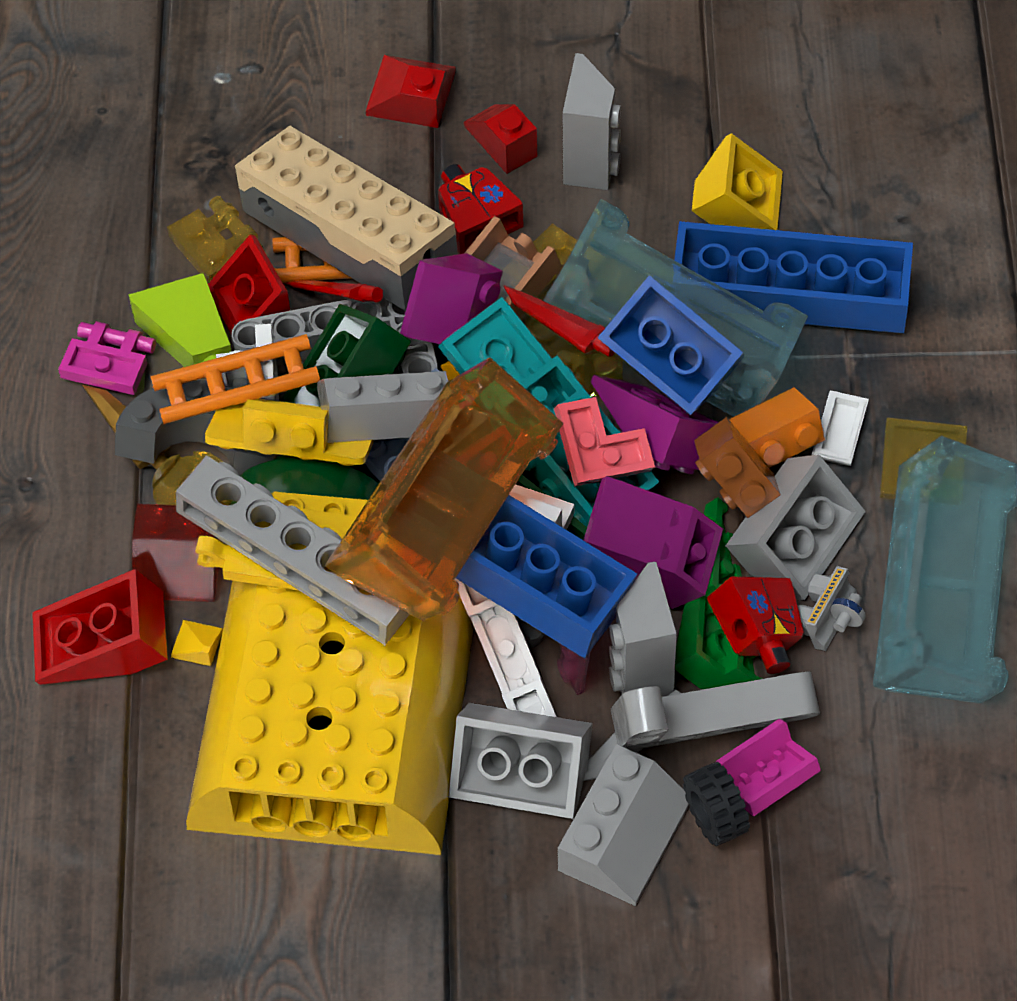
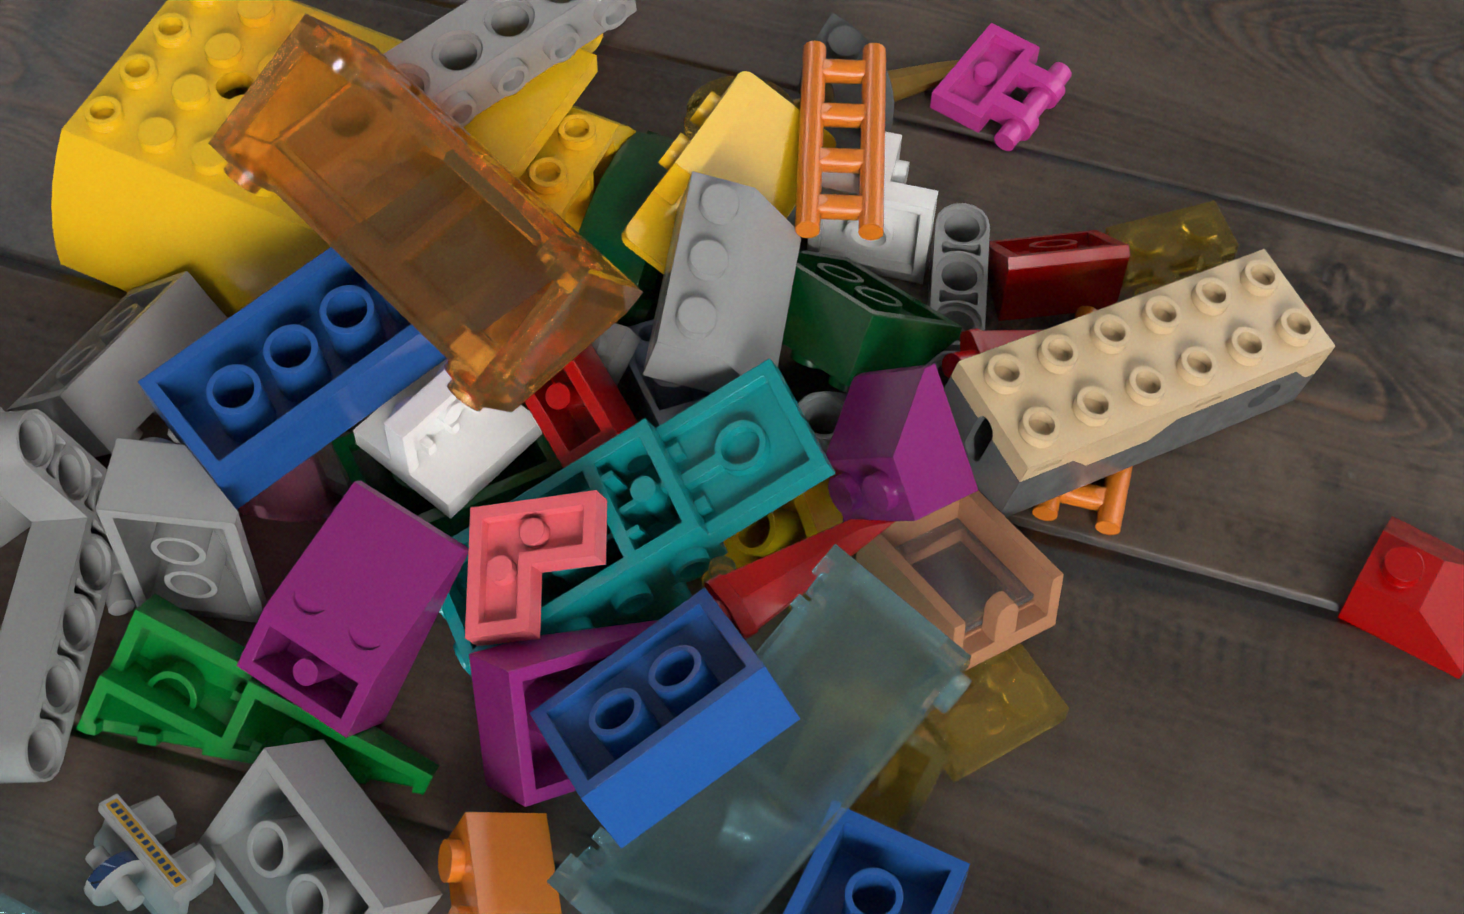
camera: 105 degrees right, 0 degrees up
(166, 554) = (650, 75): clear red slope -> none
(182, 319) = (1025, 176): lime slope -> none
(474, 200) = (1132, 600): red torso -> none
(505, 135) = (1282, 689): red slope -> none
(589, 128) = (1232, 779): light grey slope -> none
(736, 467) = (423, 774): dark orange brick -> none
(759, 618) = (162, 737): red torso -> none

